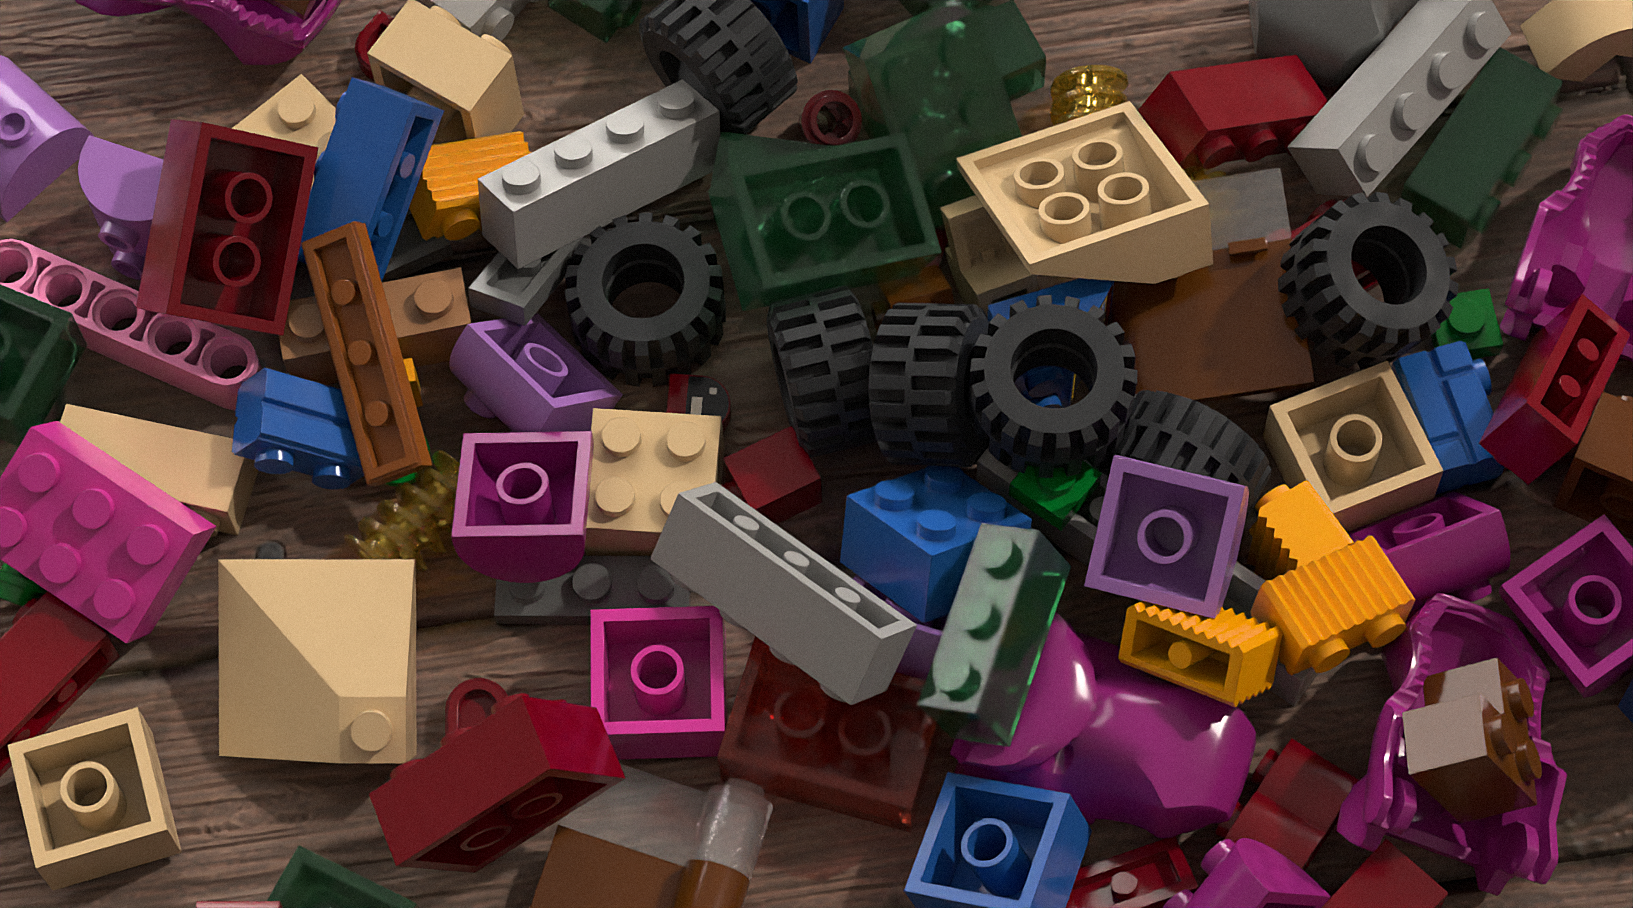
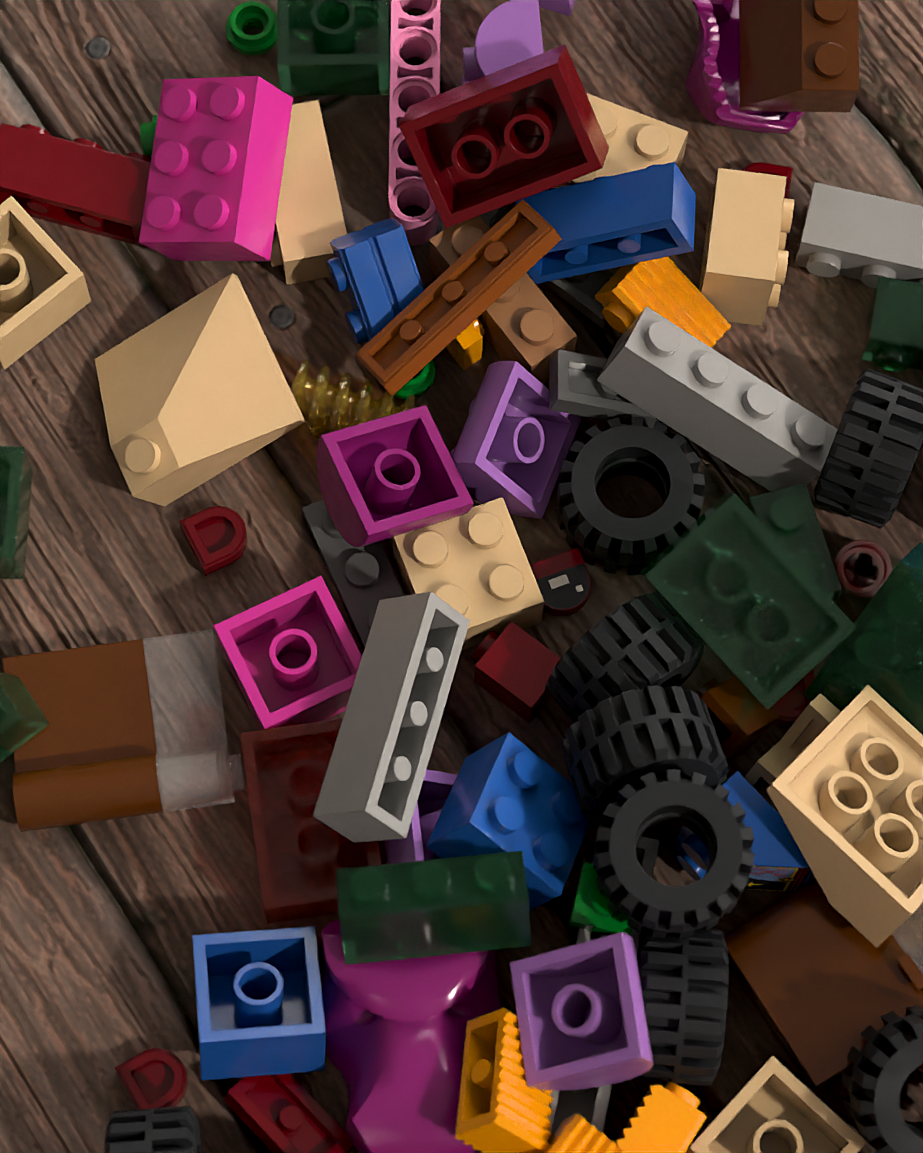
camera: 60 degrees right, 5 degrees up
(495, 784) = (136, 570): dark red brick -> none

